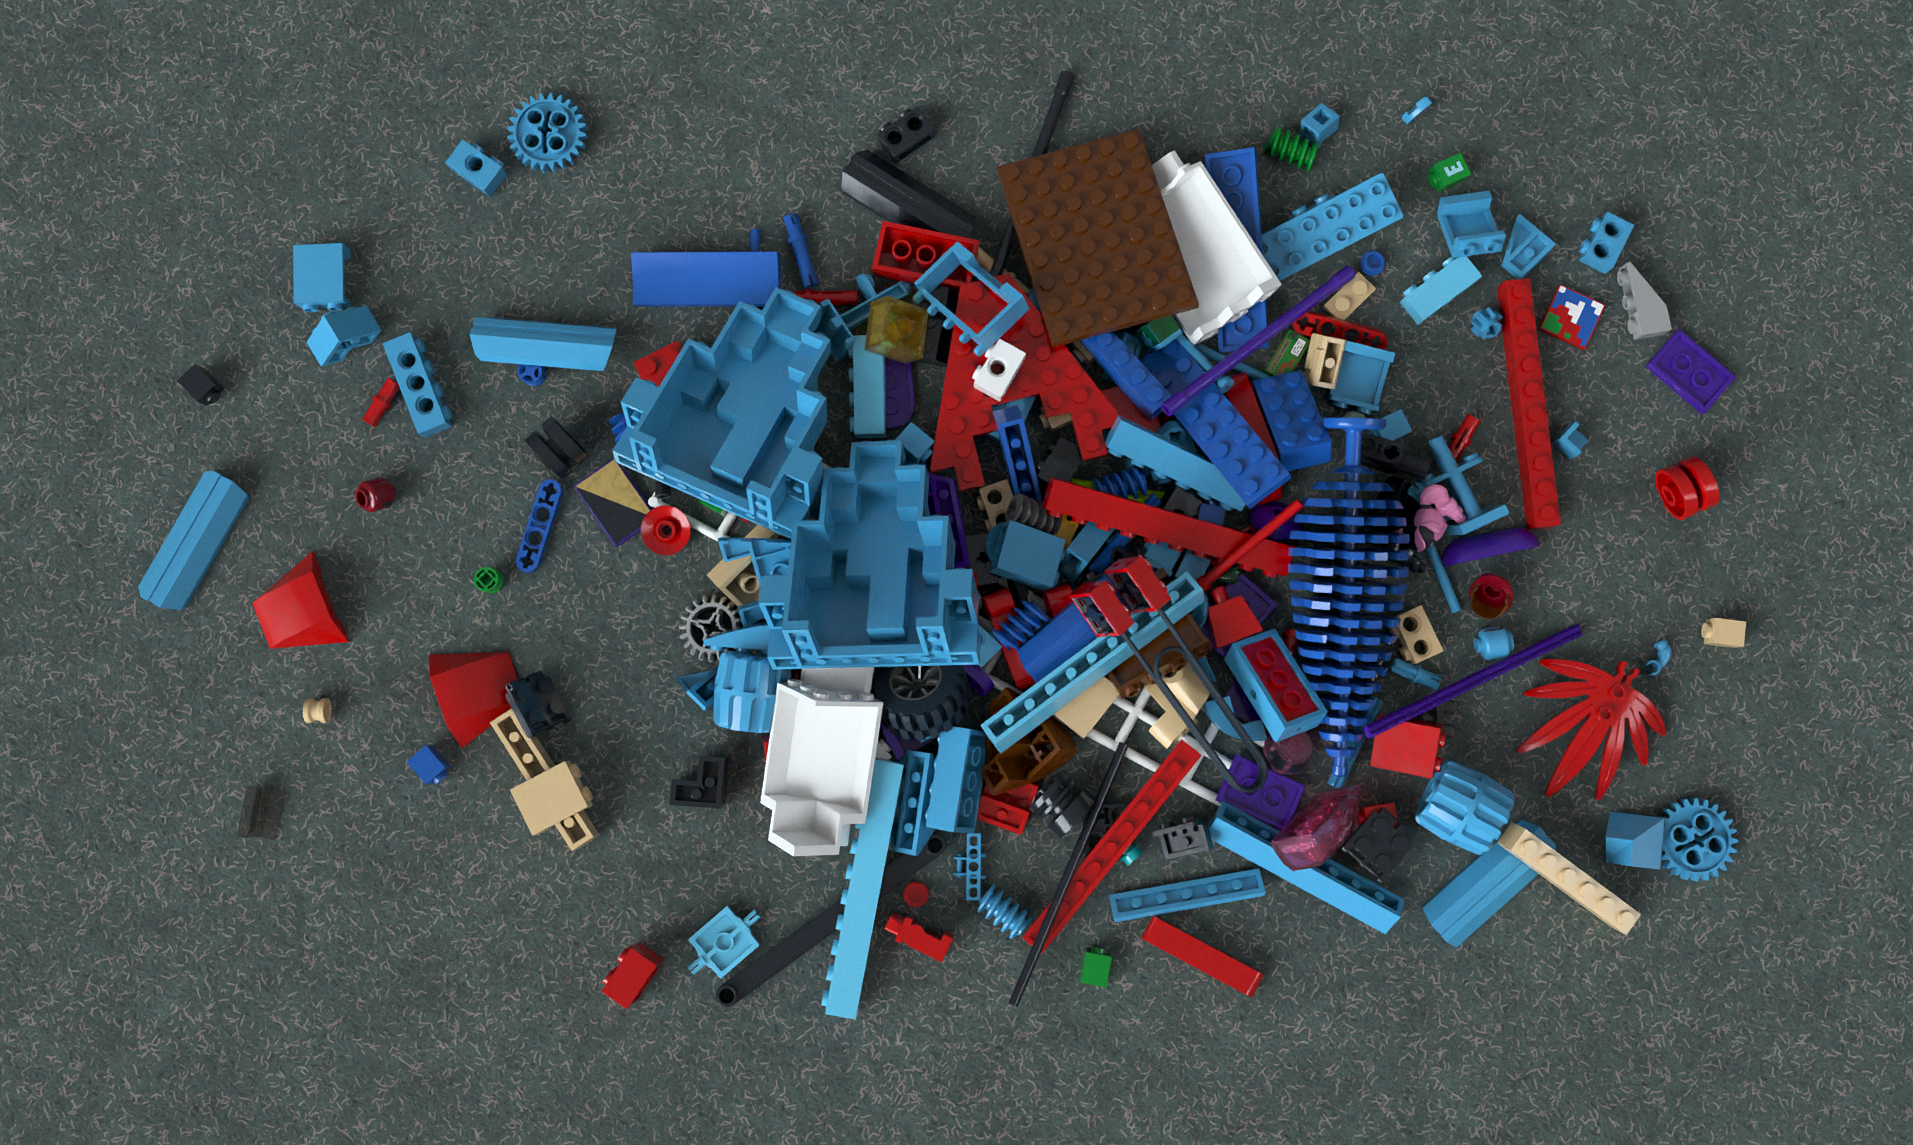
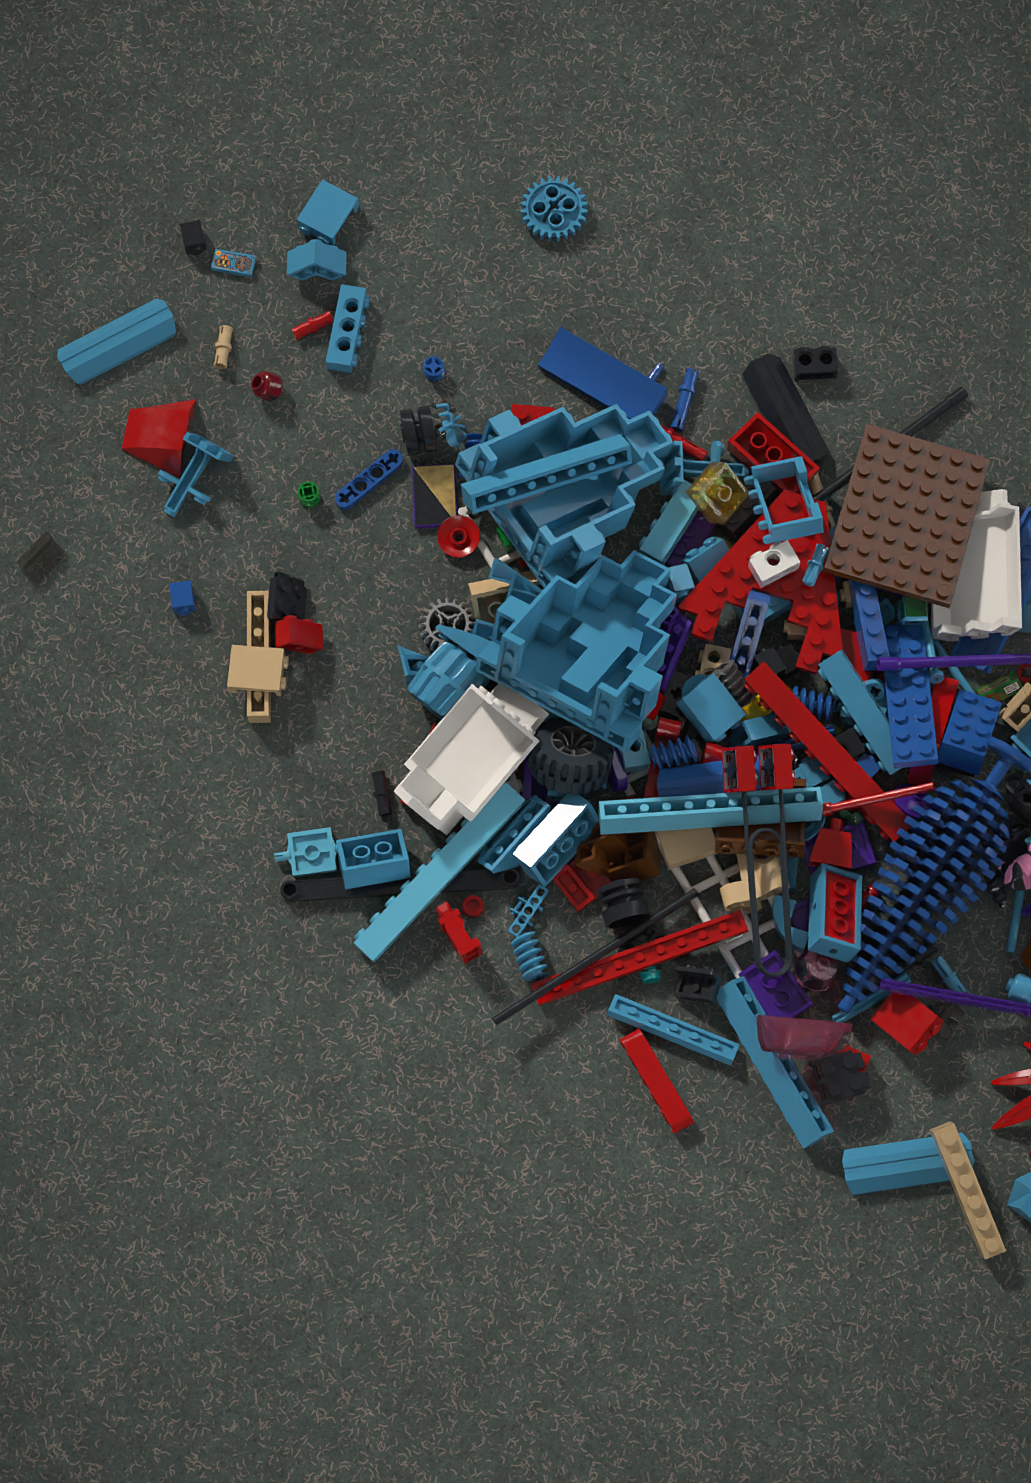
camera: 30 degrees right, 10 degrees down
(260, 386) = (233, 263): none -> tile
(305, 480) = (223, 347): none -> tan pin
(317, 710) = (127, 511): tan wheel -> none
(354, 601) = (204, 451): none -> dark azure piece
(464, 160) = (487, 191): dark azure brick -> none
(471, 690) = (245, 564): red wedge -> none
(542, 343) = (454, 352): dark azure piece -> none
(570, 733) = (299, 635): none -> red brick
(585, 427) = (448, 428): none -> animal
(633, 974) = (232, 830): red brick -> none
(707, 790) = (369, 735): black brick -> none
(715, 420) = (546, 473): none -> dark azure brick
(755, 838) = (381, 793): none -> black pin
(790, 915) = (373, 859): none -> dark azure brick
(924, 402) = (702, 560): none -> dark azure brick
(1040, 345) = (815, 565): none -> dark azure axle
(1095, 967) = (572, 1038): green brick -> none
(1421, 631) = (970, 949): tan brick -> none
(1464, 807) = (921, 1088): dark azure wheel -> none

